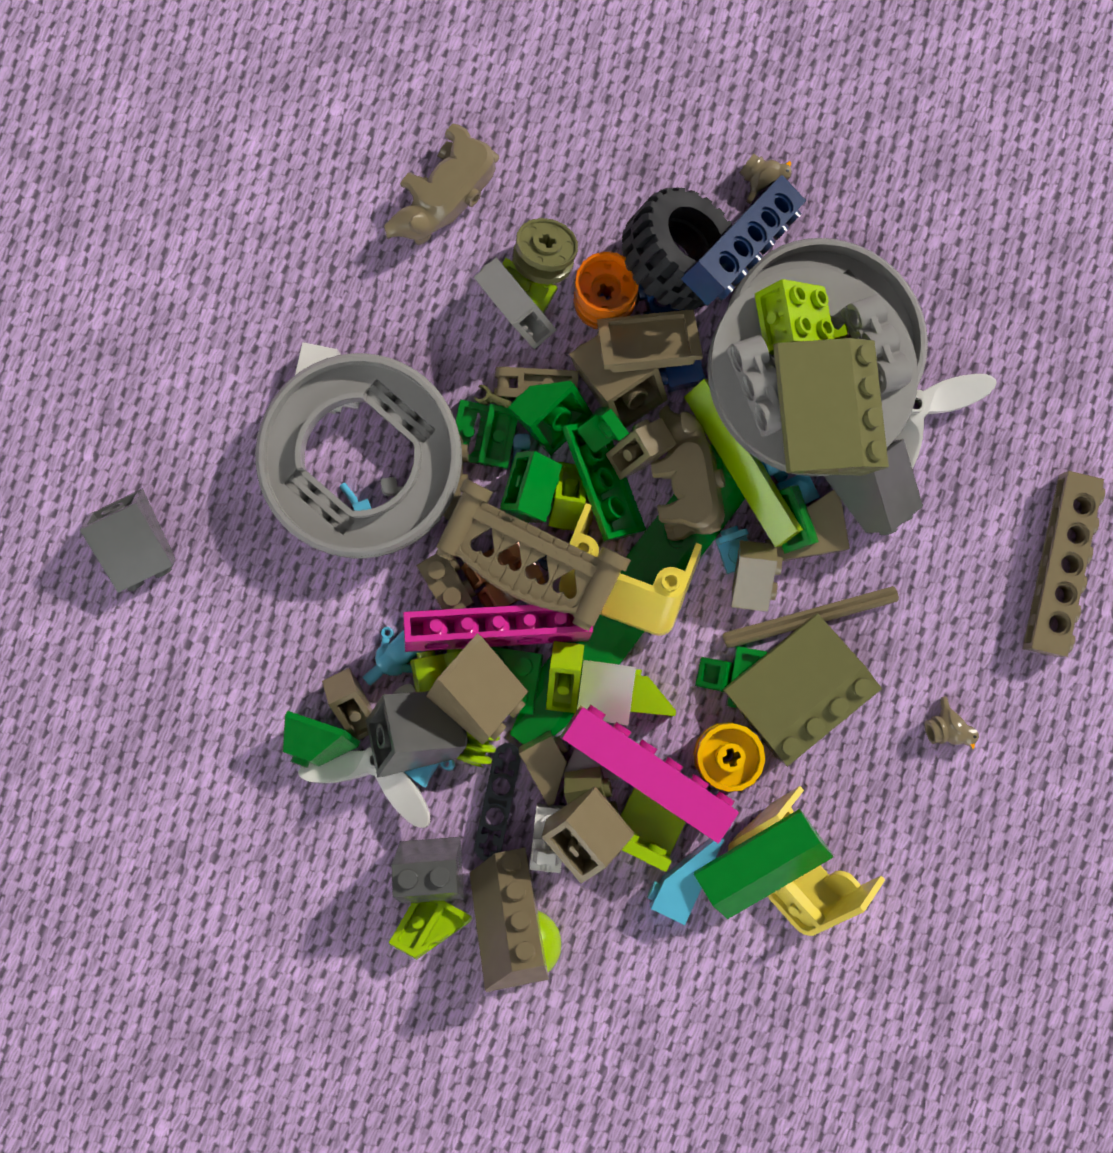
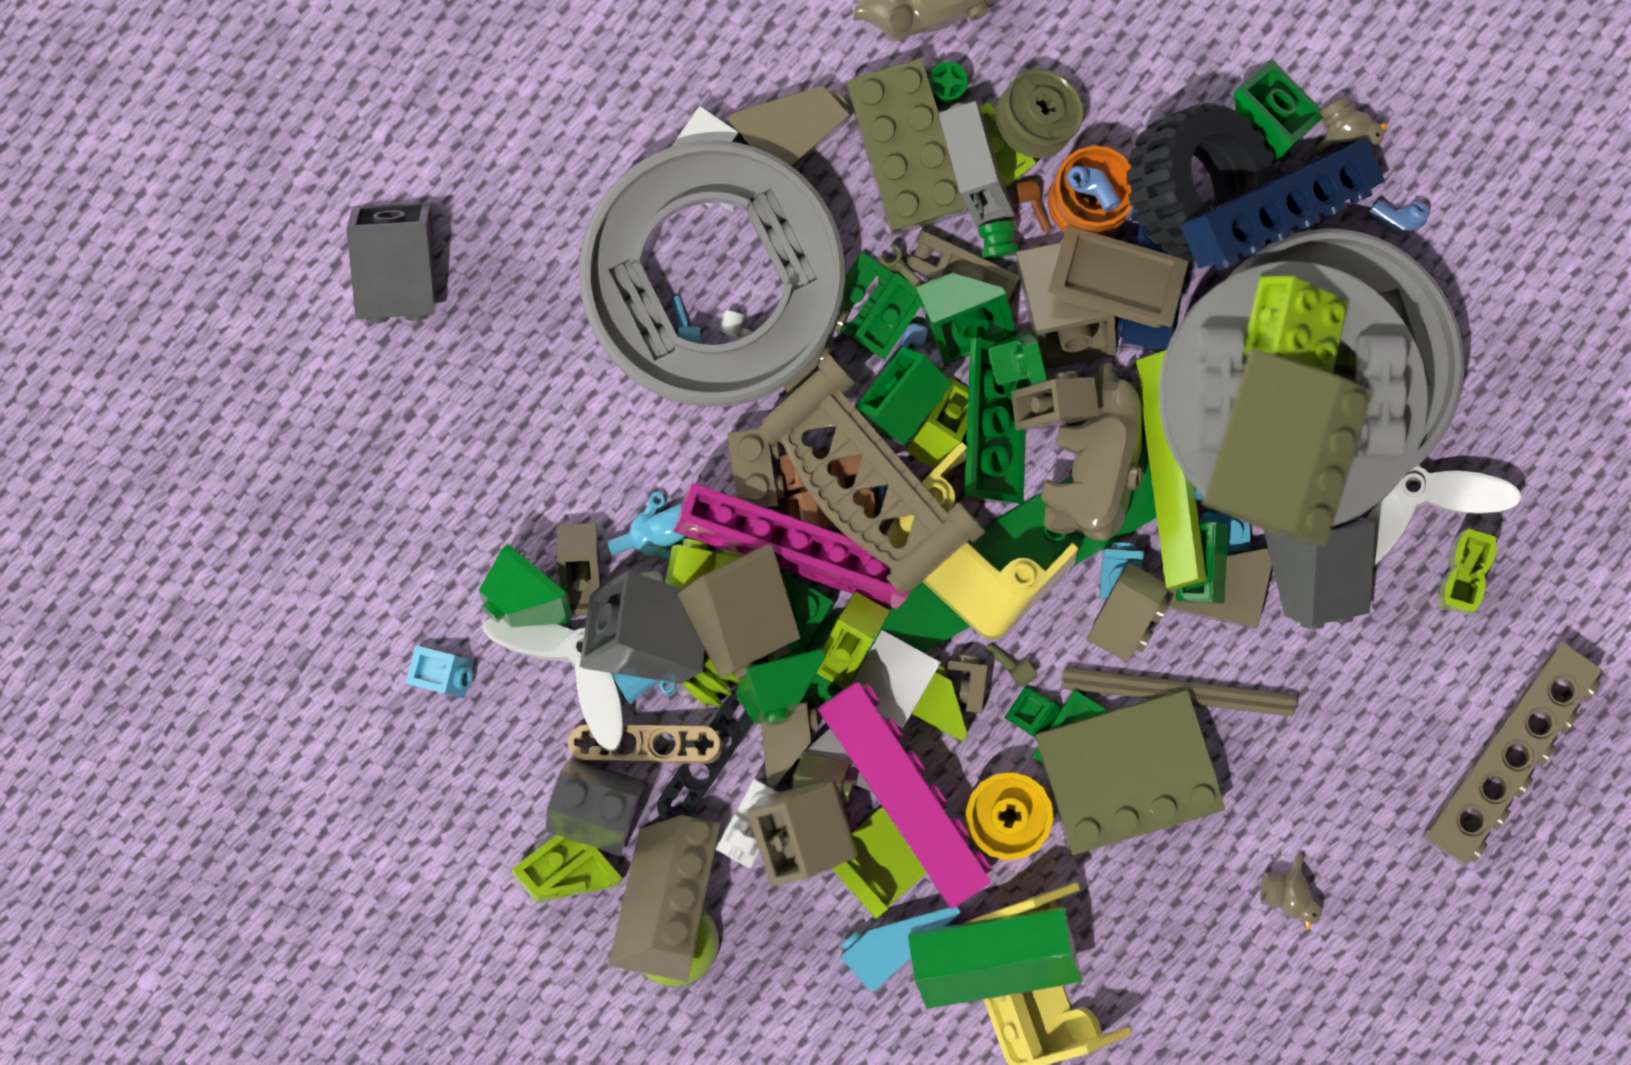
camera: 20 degrees right, 0 degrees up
(281, 819) = (440, 672): none -> medium azure bracket
(375, 328) = (793, 124): none -> dark tan slope
(449, 812) = (645, 747): none -> tan beam
(461, 312) = (905, 147): none -> olive brick
(470, 251) = (948, 75): none -> green wheel
(527, 734) = (776, 688): none -> green slope
(553, 351) = (998, 240): none -> green wheel
(561, 310) = (1029, 192): none -> dark orange hand
(603, 281) = (1094, 183): none -> medium blue arm
(666, 675) = (971, 690): none -> dark tan bracket
(694, 649) = (1021, 673): none -> olive hand
(710, 180) = (1276, 109): none -> green slope
(827, 225) = (1400, 220): none -> medium blue arm
(977, 442) = (1465, 582): none -> lime brick

